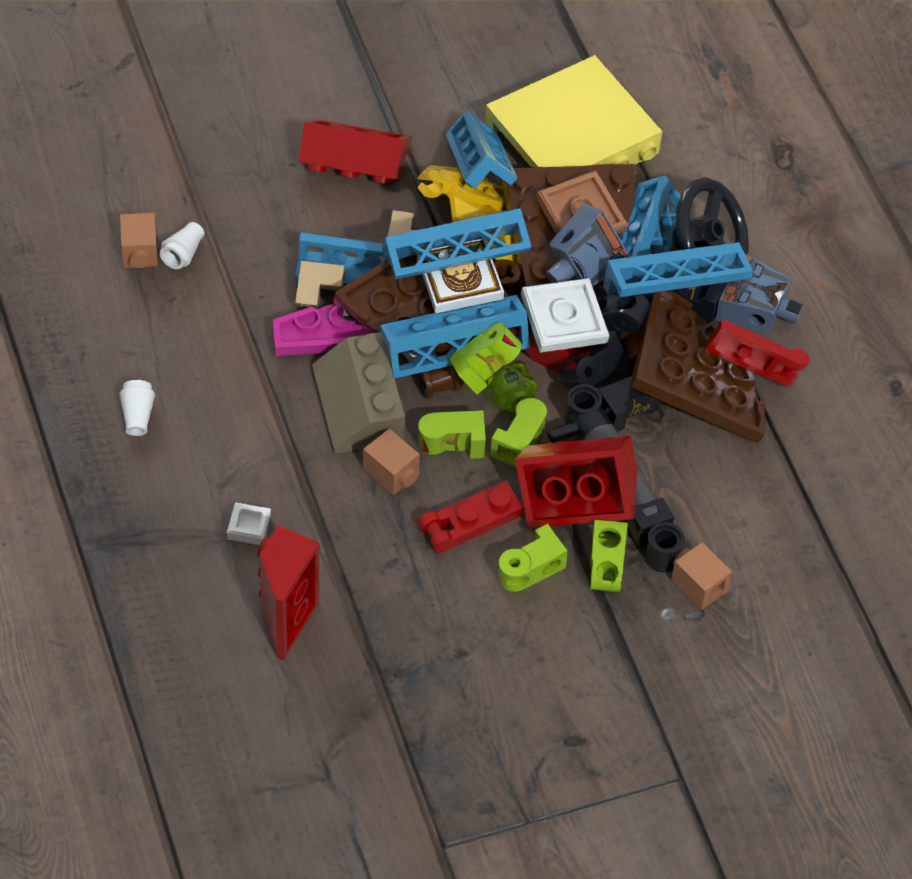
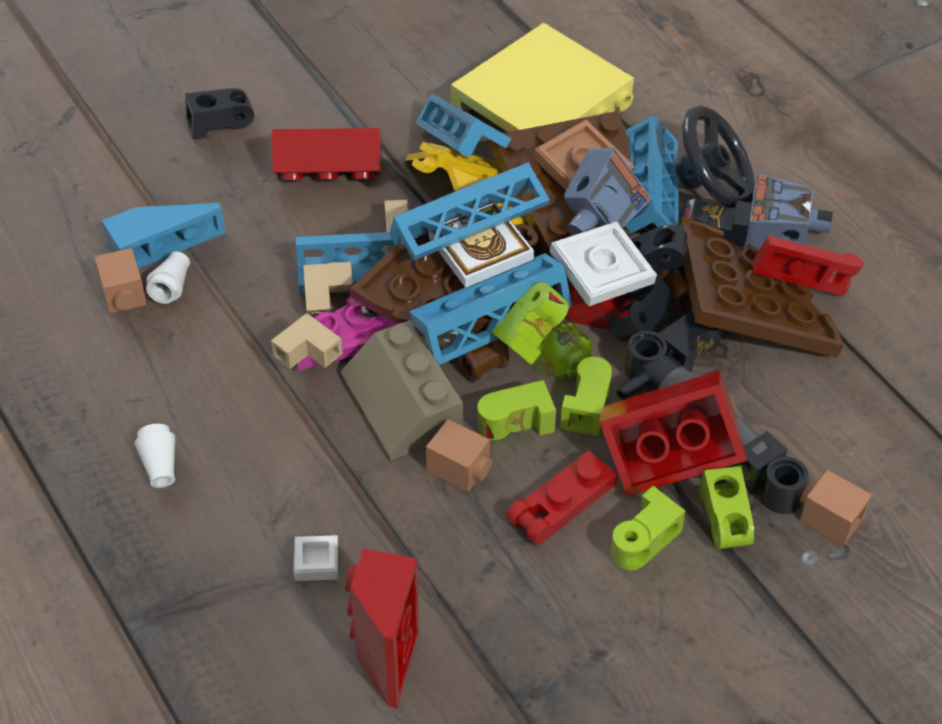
camera: 10 degrees left, 5 degrees down
(186, 198) = (160, 230): none -> dark azure slope
(263, 86) = (217, 110): none -> black leg
(287, 330) = (305, 339): none -> tan piece
(677, 270) = (702, 196): dark azure fence -> none

